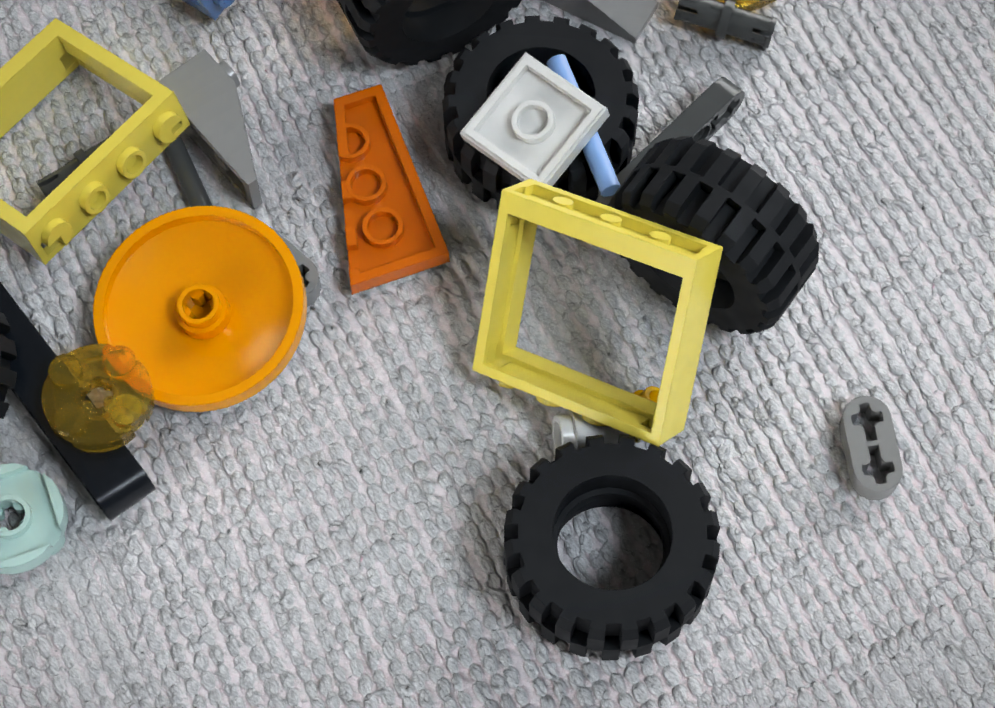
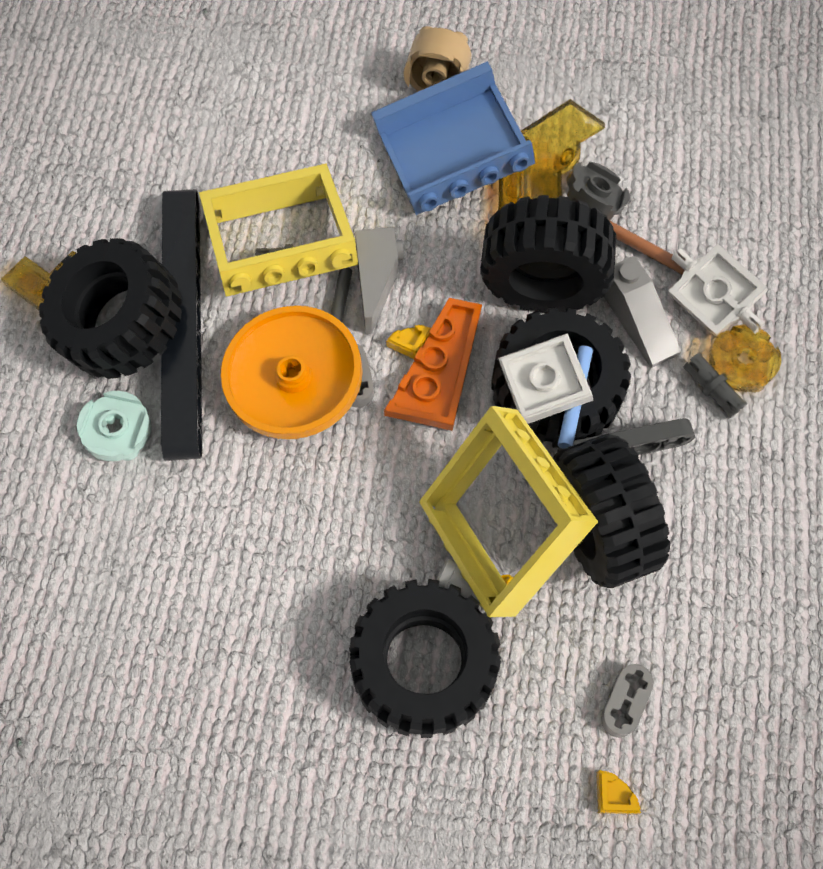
camera: 30 degrees right, 0 degrees up
(92, 367) = (207, 404): clear yellow plate -> none
(318, 183) = (408, 340): none -> yellow tile
(928, 563) = (615, 795): none -> yellow tile

